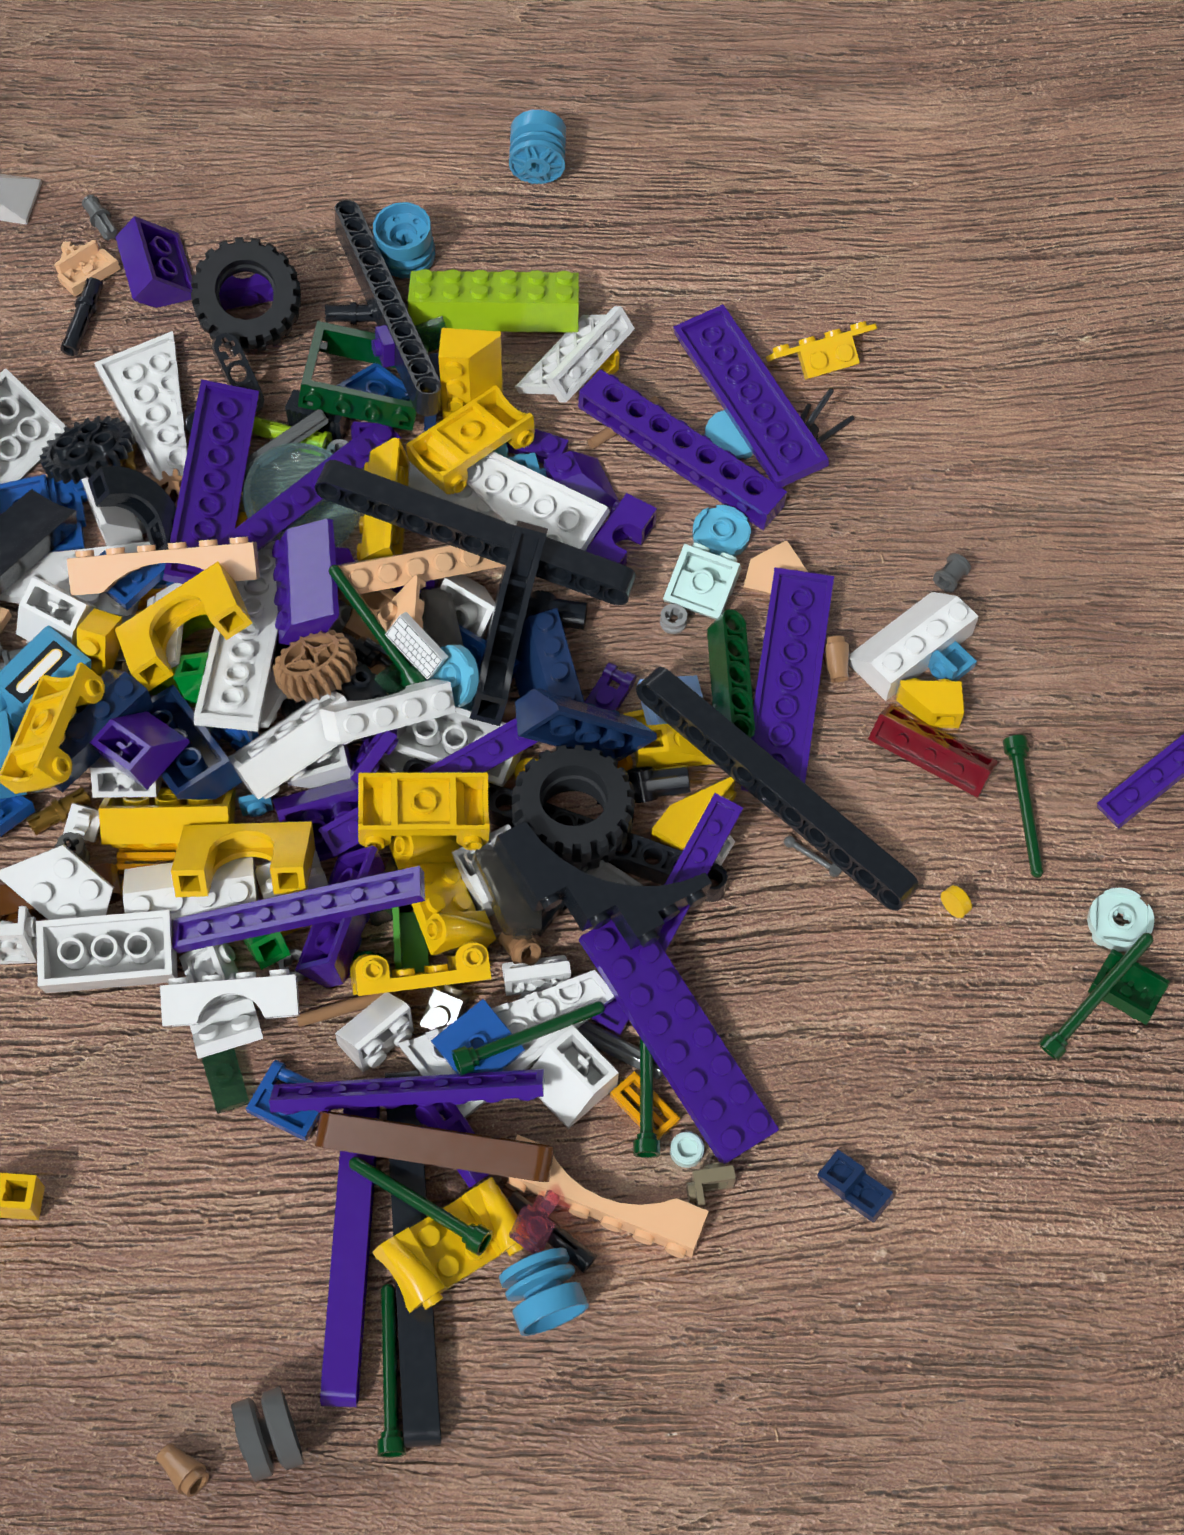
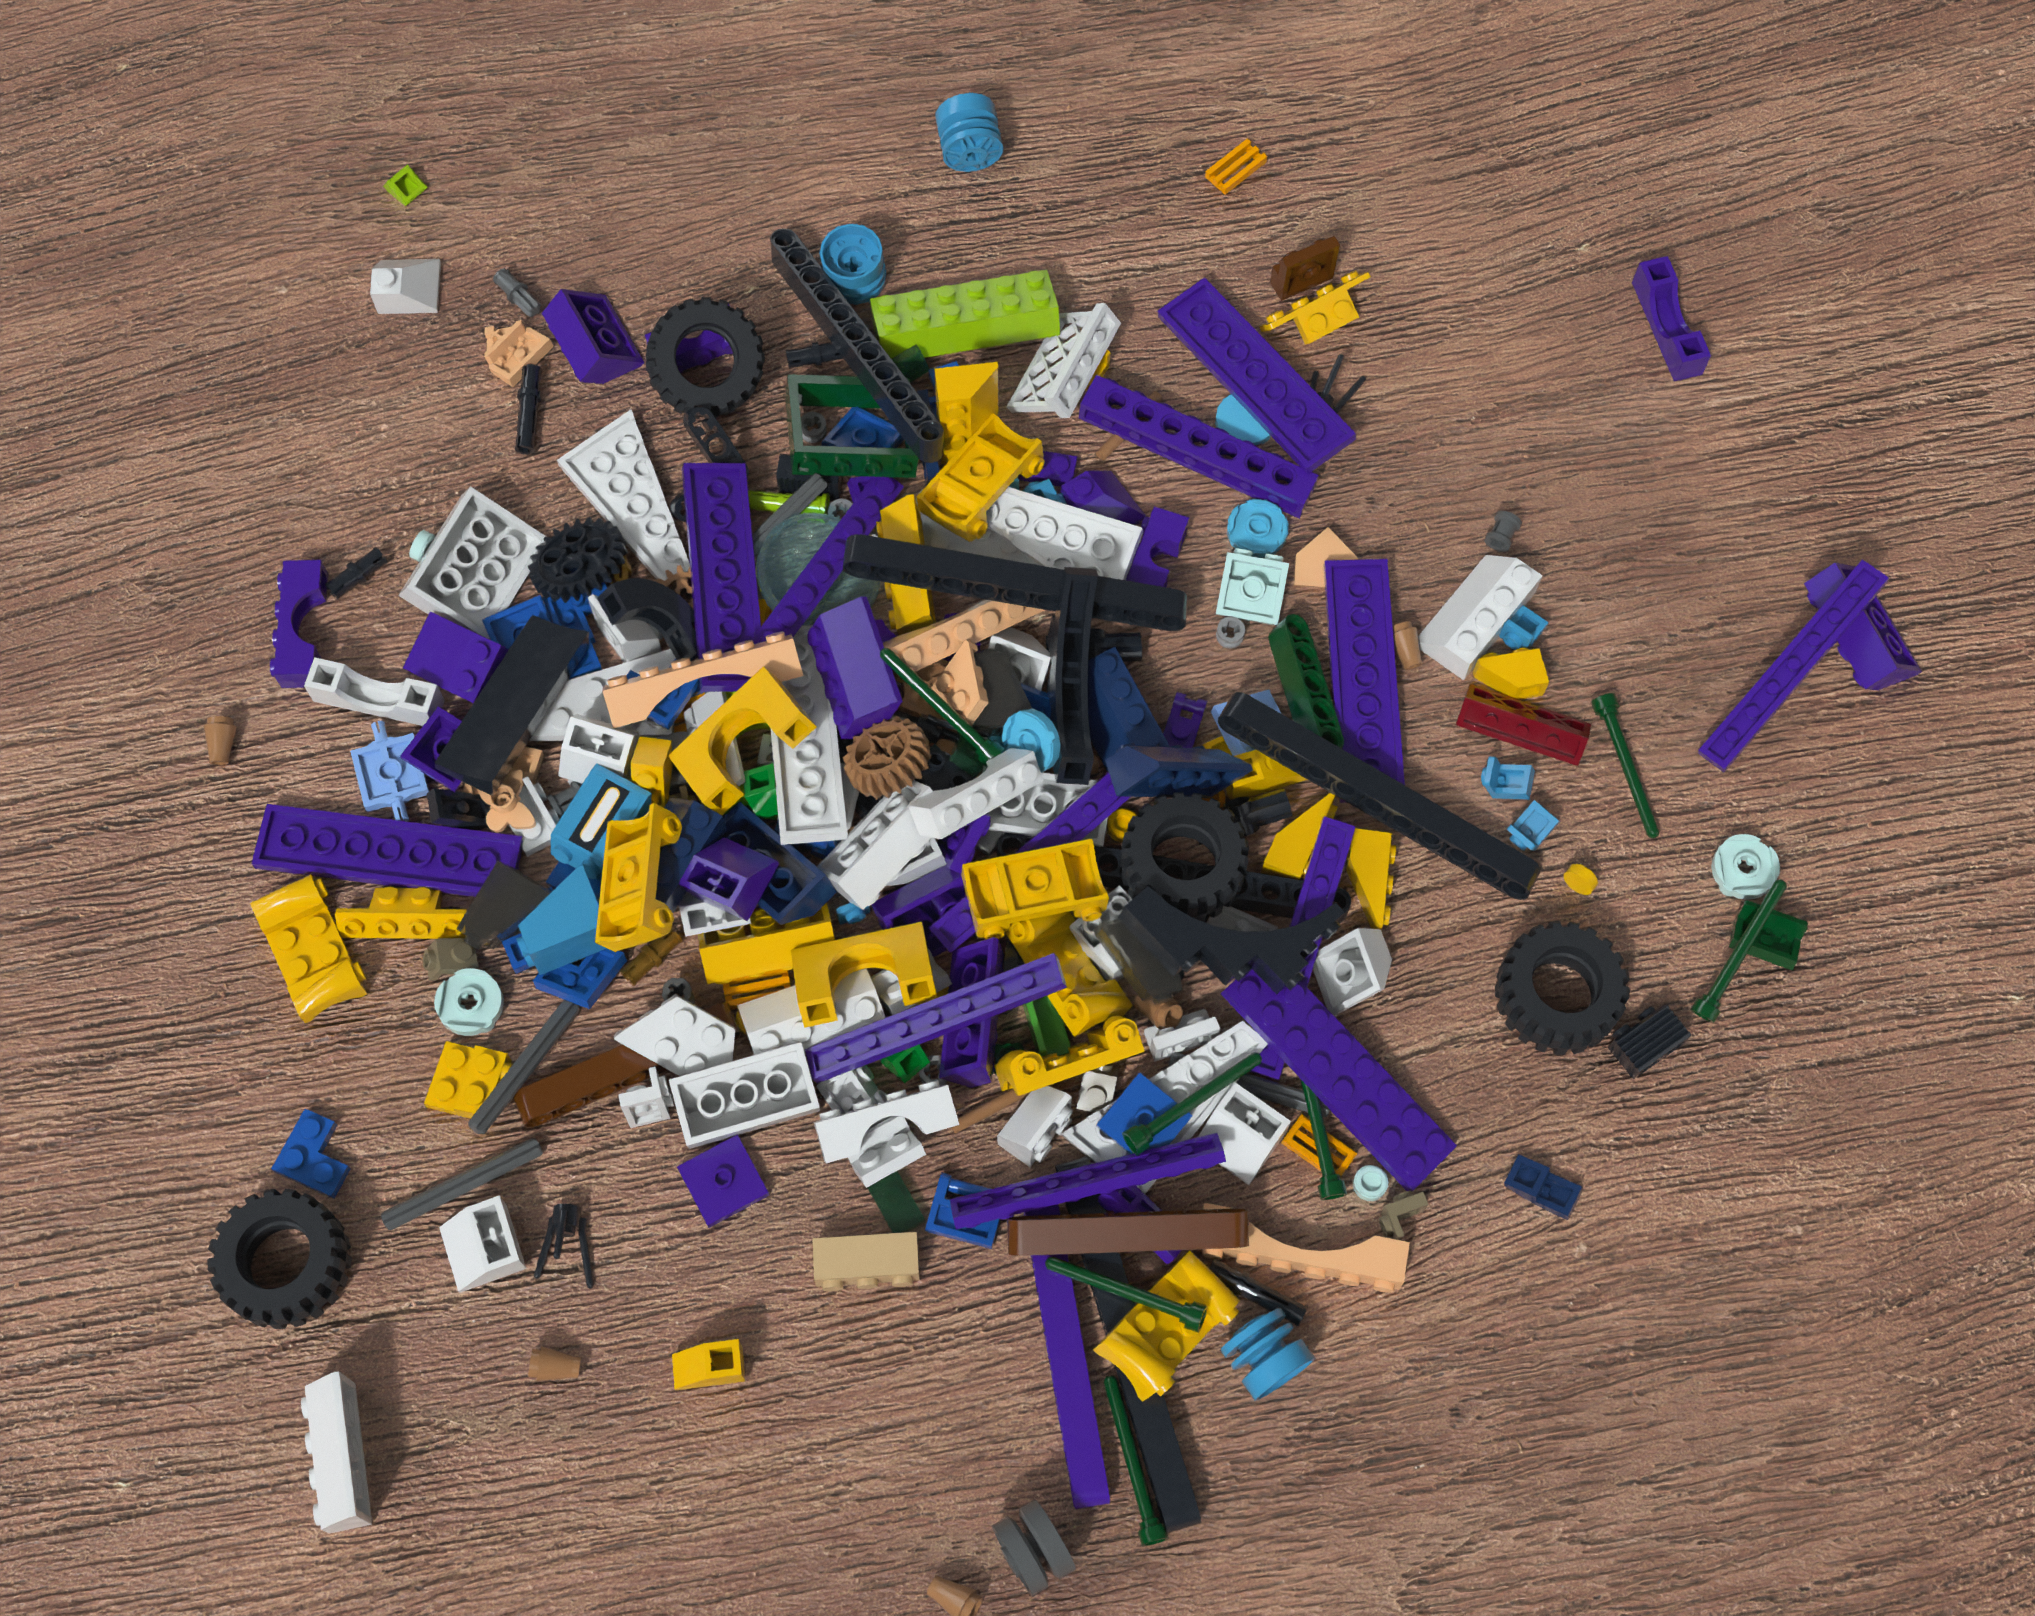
camera: 10 degrees left, 5 degrees up
(27, 114) = (405, 185): none -> lime slope
(69, 1029) = (723, 1181): none -> dark purple plate
(83, 821) = (681, 963): white tile -> none
(182, 1128) = (866, 1260): none -> tan brick
(333, 367) = (814, 435): none -> light grey bush
(384, 346) = (867, 391): dark purple plate -> none
(416, 645) = (988, 717): white tile -> none
(532, 1224) = (1242, 1291): clear pink plate -> none
(714, 942) = (1352, 968): none -> white slope
(752, 855) = (1368, 872): none -> yellow slope
(773, 214) = (1250, 152): none -> light orange tile
(790, 842) = (1450, 868): dark grey hinge -> none
(817, 310) = (1305, 268): none -> reddish brown plate
(904, 797) = (1507, 780): none -> dark azure bracket
(920, 845) = (1532, 827): none -> dark azure bracket
(933, 964) = (1584, 954): none -> black tyre
(989, 1065) = (1649, 1040): none -> black brick
(1145, 387) = (1658, 294): none -> dark purple arch

